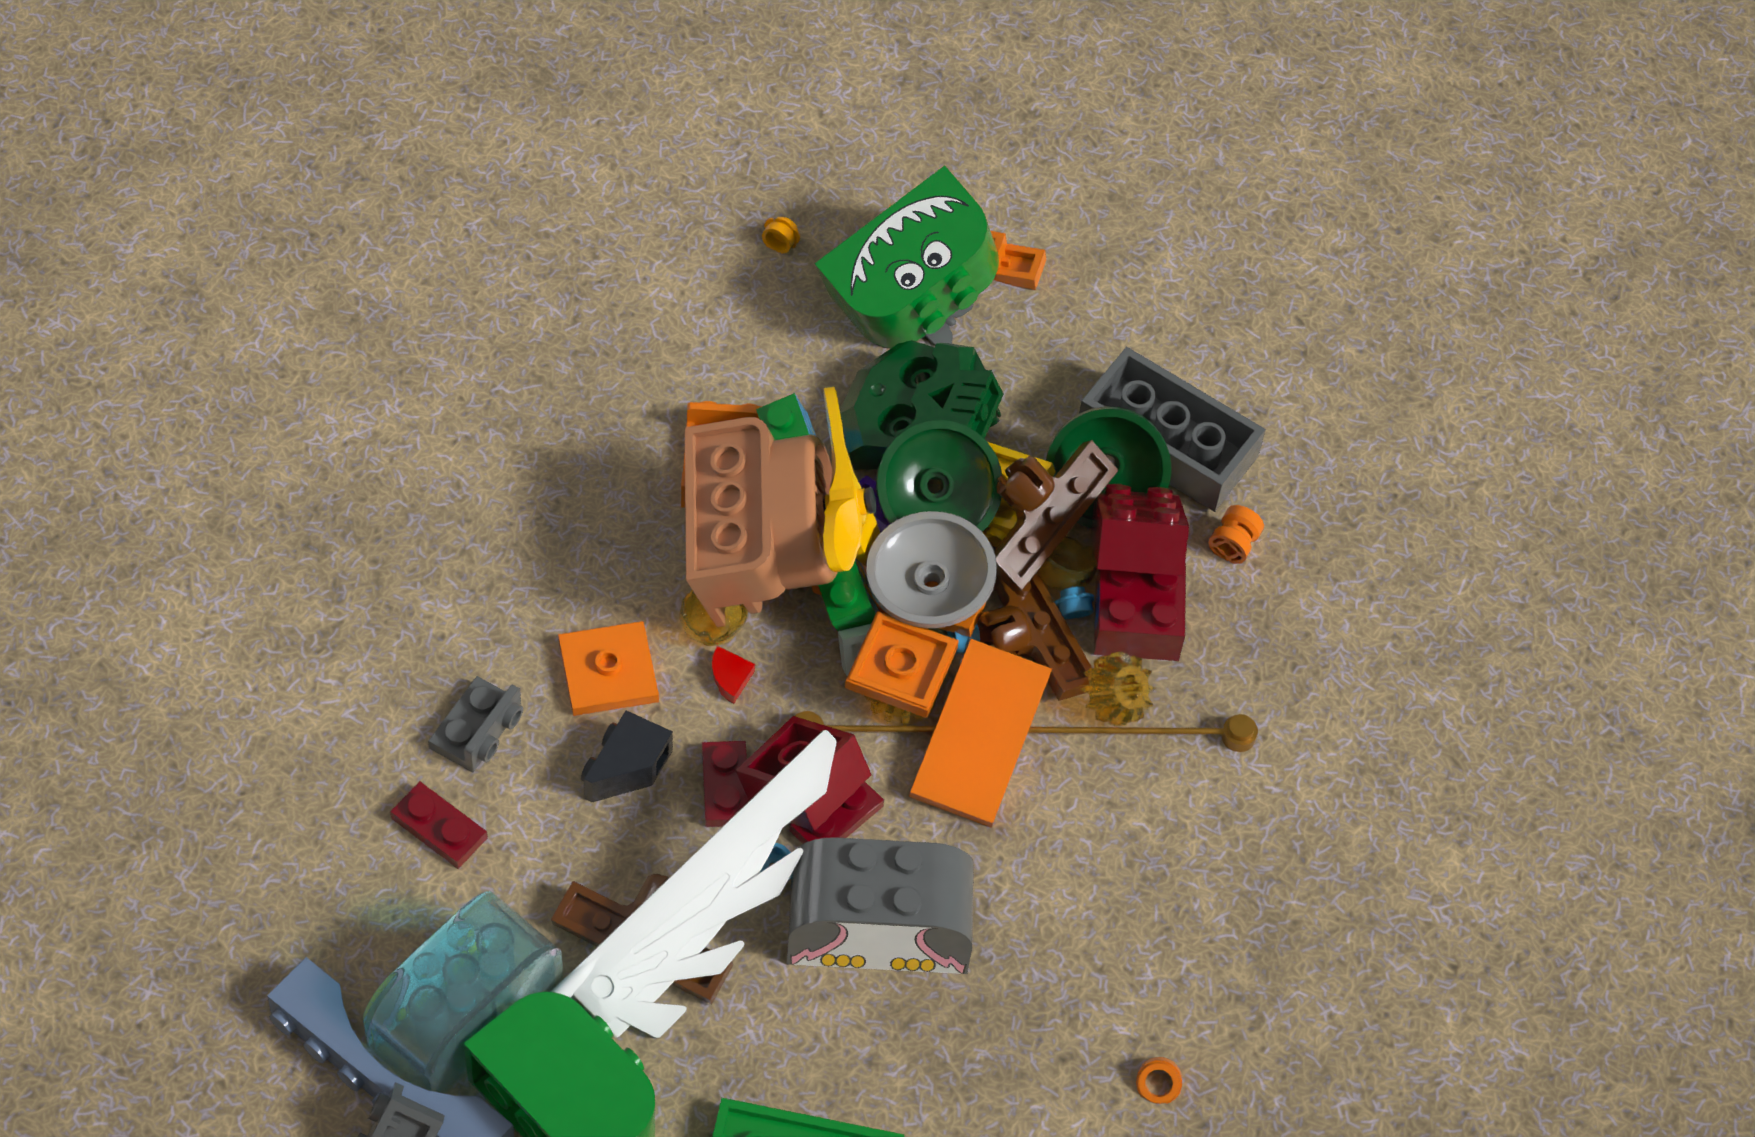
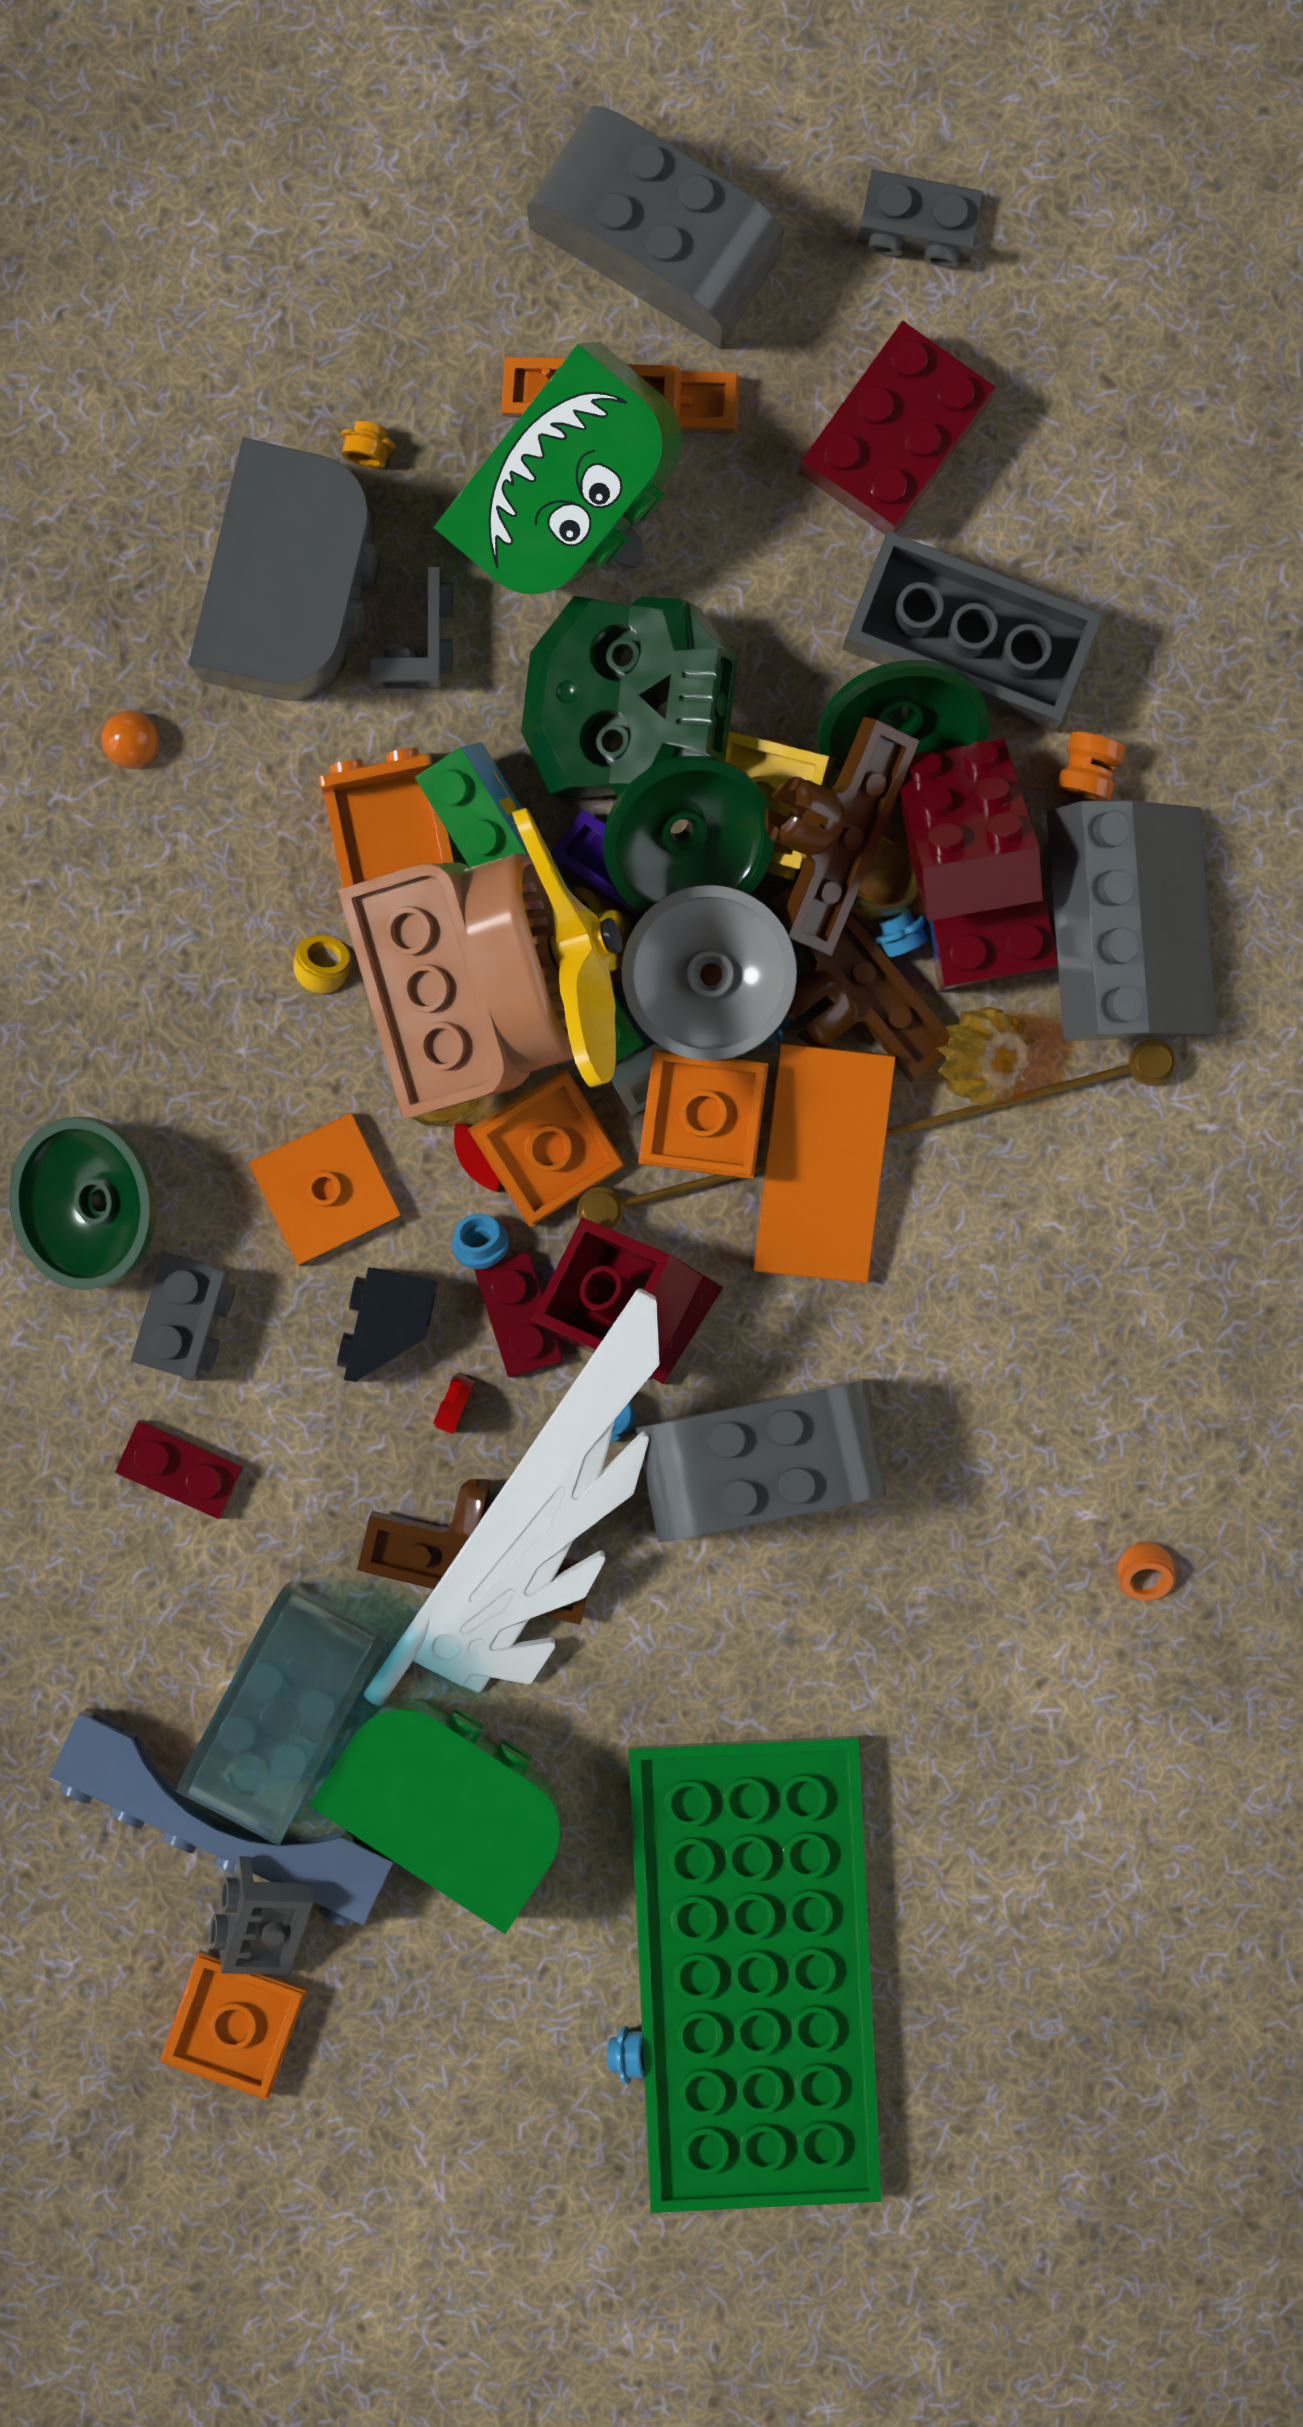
camera: 10 degrees left, 30 degrees up
(431, 621) = (62, 1209): none -> dark green dish
(562, 363) = (130, 739): none -> orange piece
(649, 535) = (316, 978): none -> yellow piece
(657, 830) = (454, 1403): none -> red tile
(701, 284) = (286, 575): none -> dark grey brick
(711, 724) = (474, 1230): none -> dark azure plate
(776, 366) = (401, 666): none -> dark grey bracket
(779, 675) = (547, 1147): none -> orange plate
(1015, 149) = (657, 223): none -> dark grey brick
(1147, 302) = (896, 429): none -> dark red brick
(1191, 198) = (920, 218): none -> dark grey bracket
(1245, 625) = (1131, 920): none -> dark grey slope

